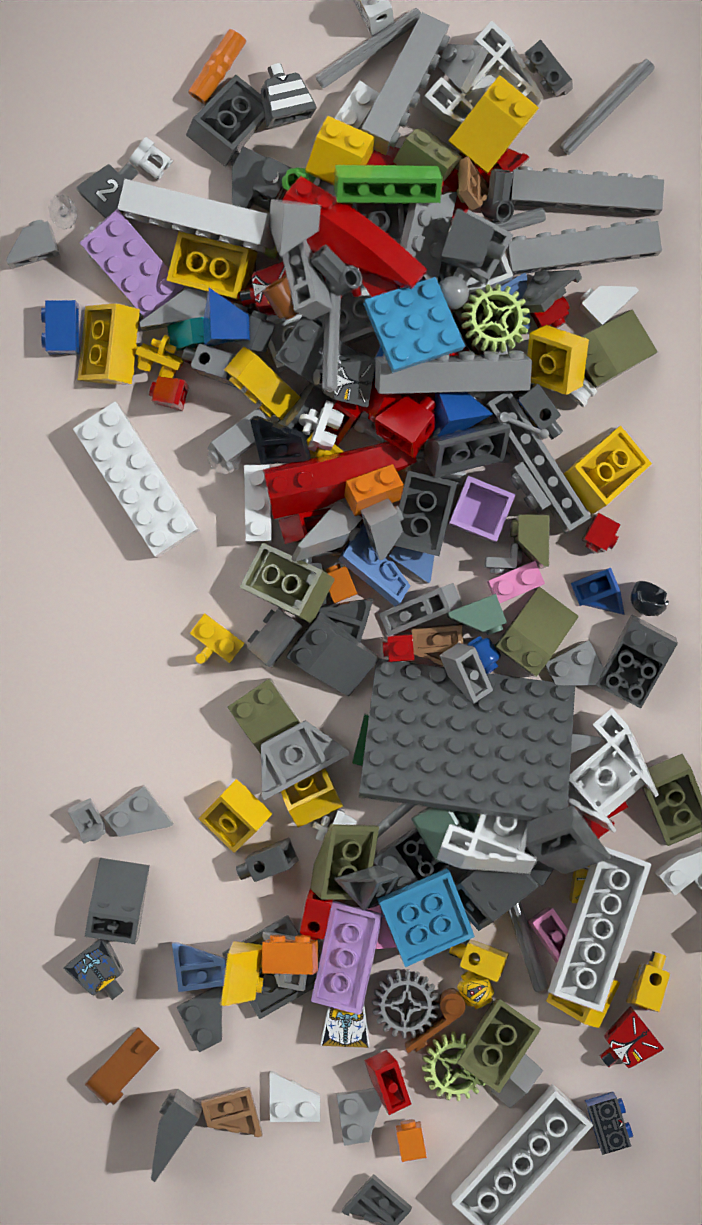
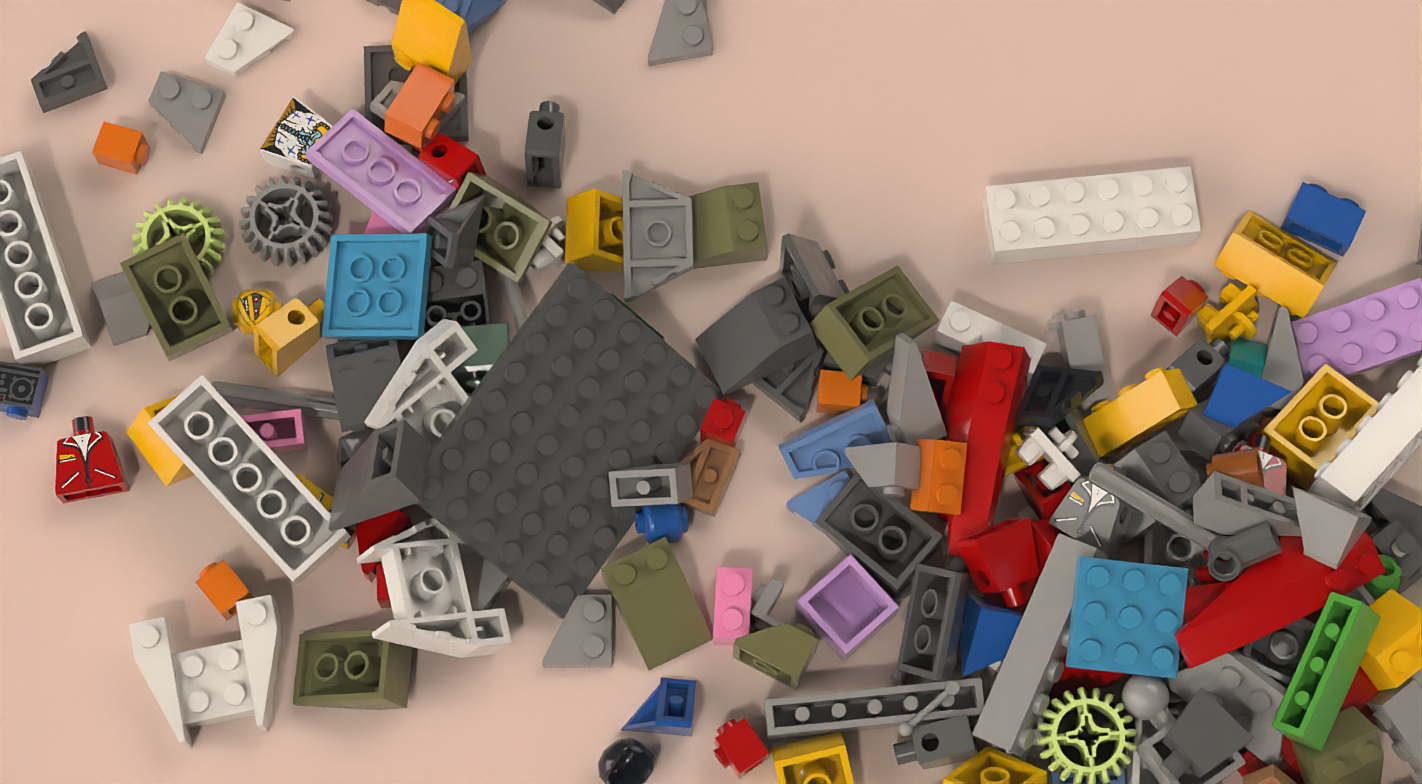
camera: 115 degrees right, 15 degrees down
(216, 640) = (845, 218): yellow plate -> none
(235, 816) = (621, 136): yellow slope -> none
(388, 1081) = (206, 153): red slope -> none
(420, 609) = (758, 476): light grey slope -> none
(452, 1008) = (251, 267): dark orange door -> none
(480, 615) = (712, 537): sand green slope -> none
(535, 496) = (859, 677): light grey plate -> none
(637, 661) = (554, 710): dark grey slope -> none
(647, 994) = (134, 509): yellow torso -> none
(665, 909) = (223, 588): none -> orange brick

